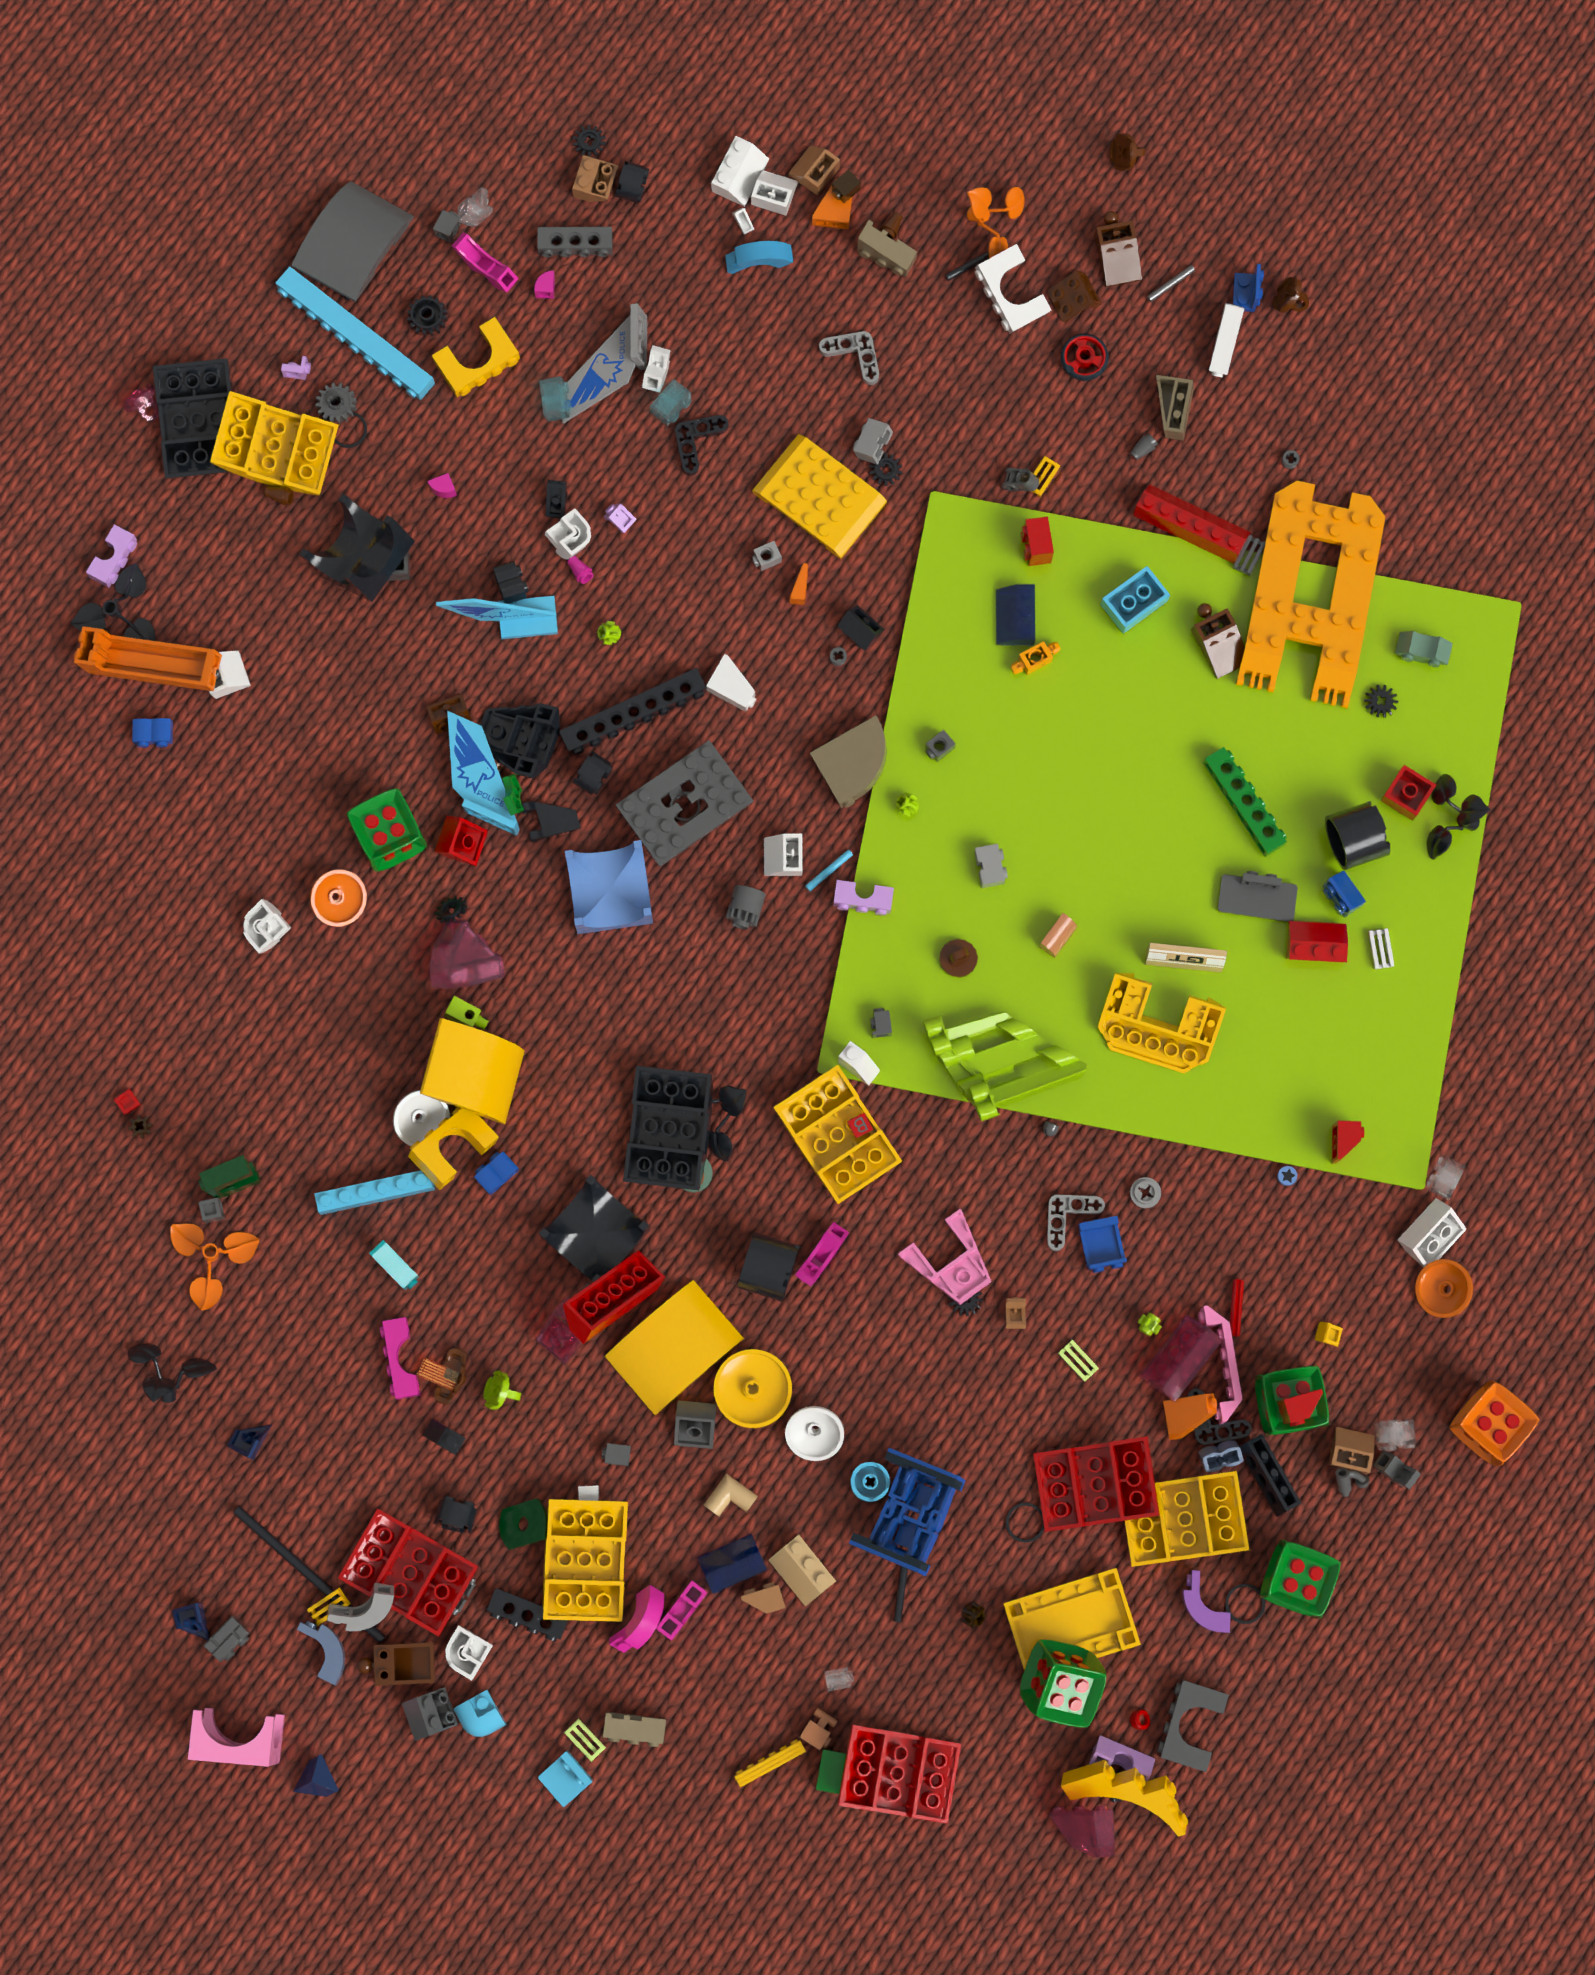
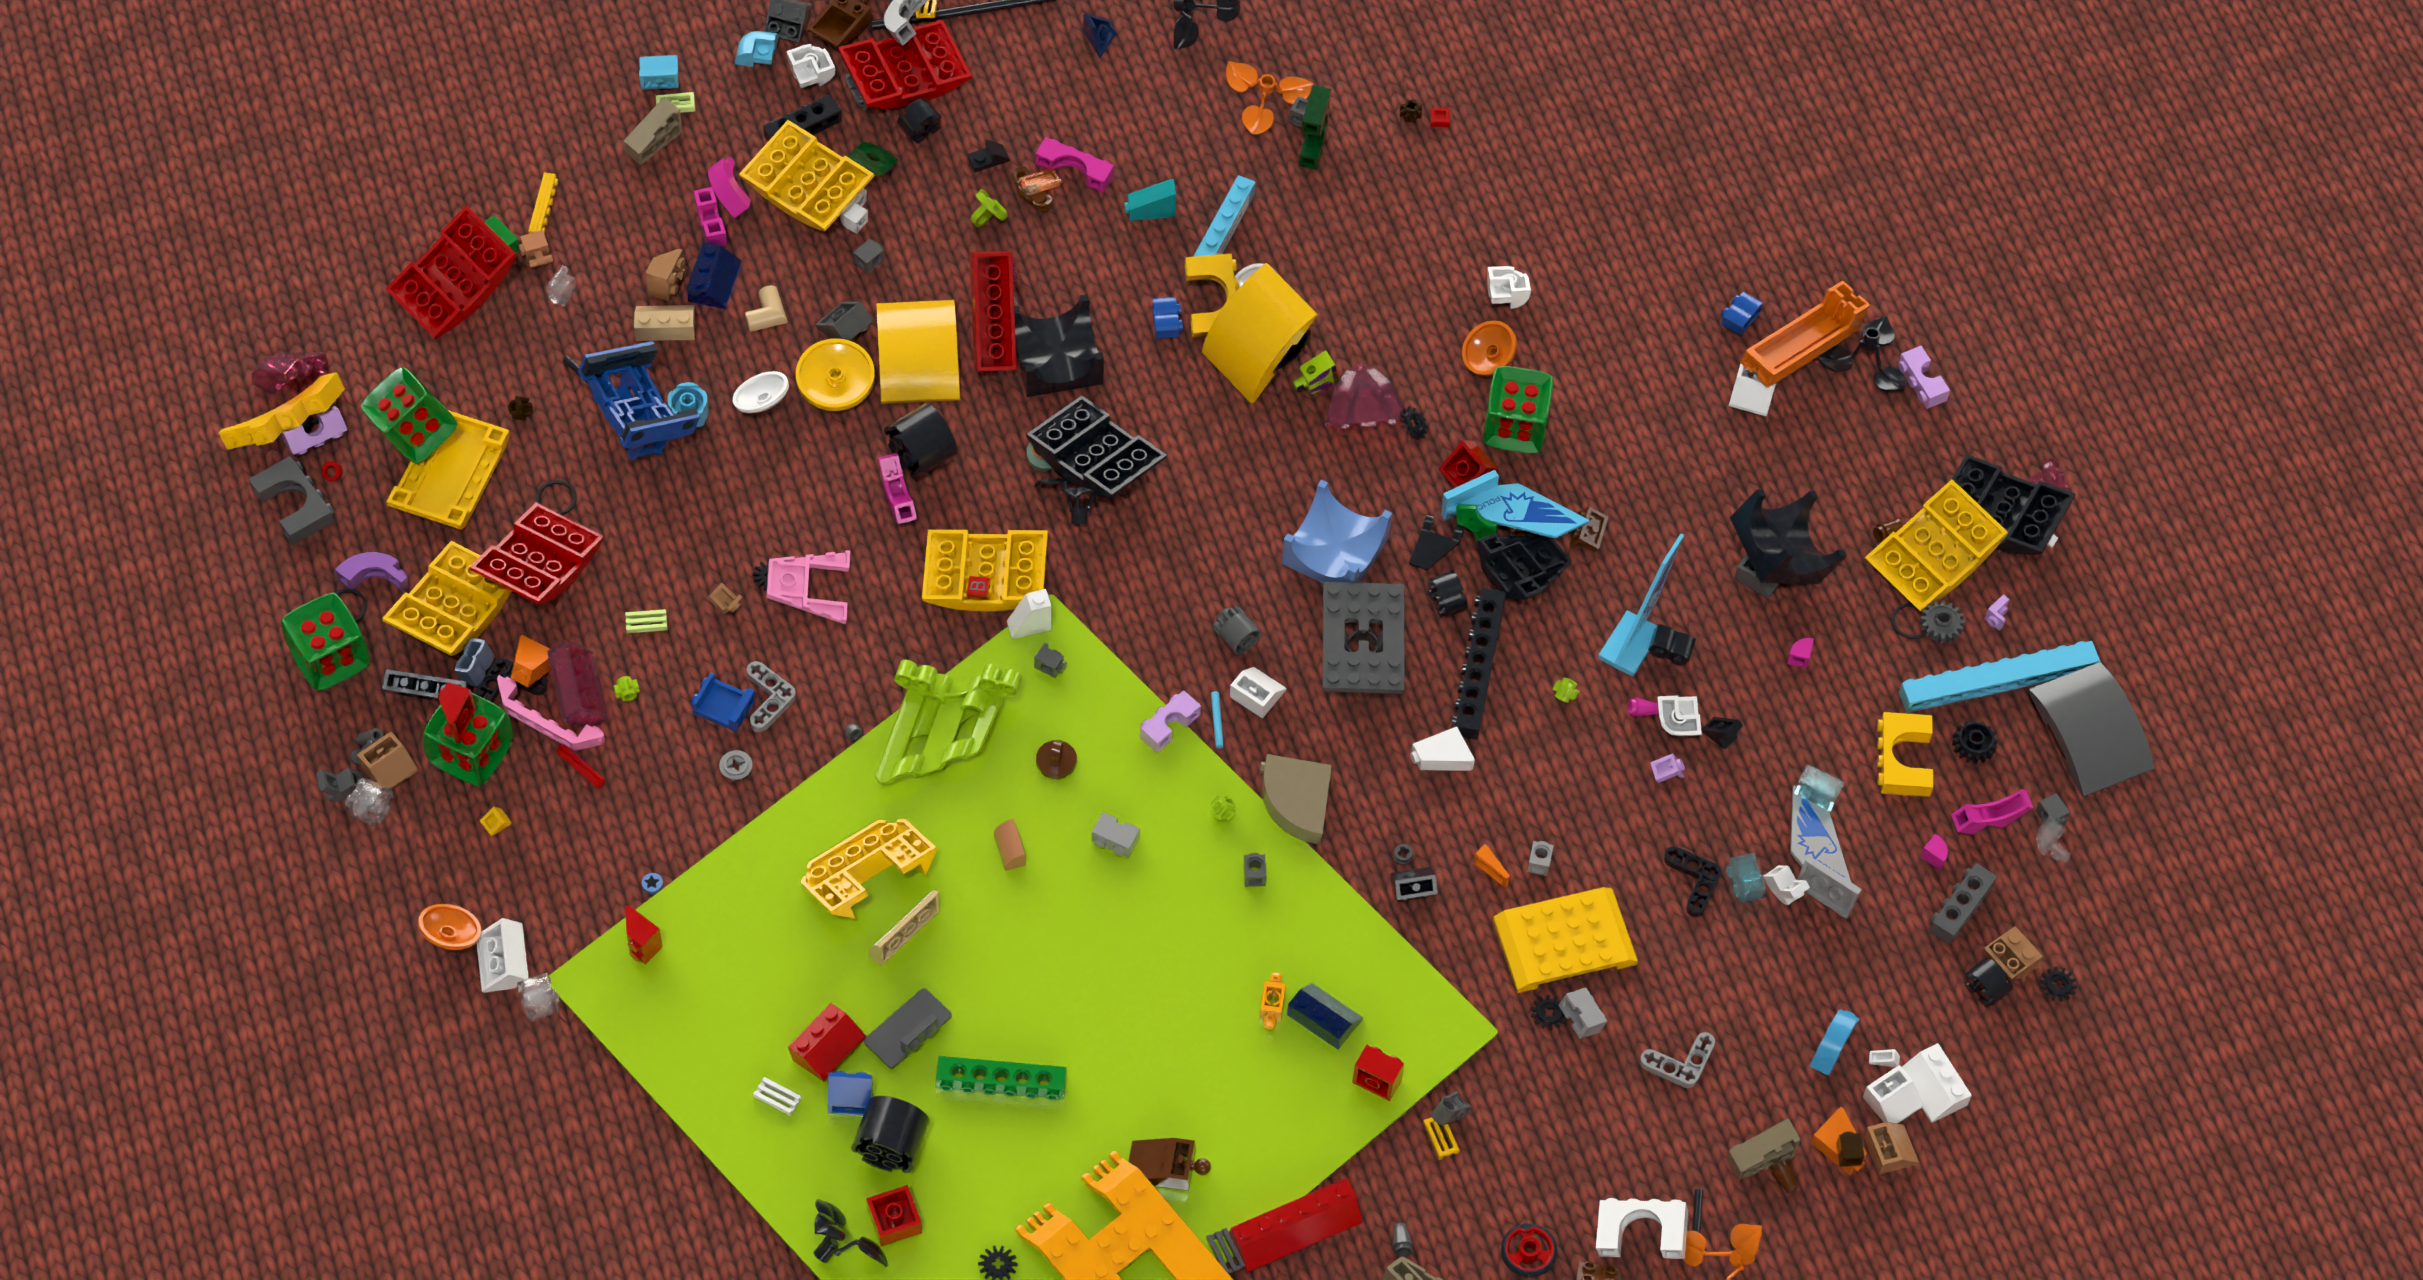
camera: 125 degrees right, 20 degrees down
(1135, 599) = (1259, 1117): medium azure brick -> none
(1494, 1423) = (306, 874): orange piece -> none

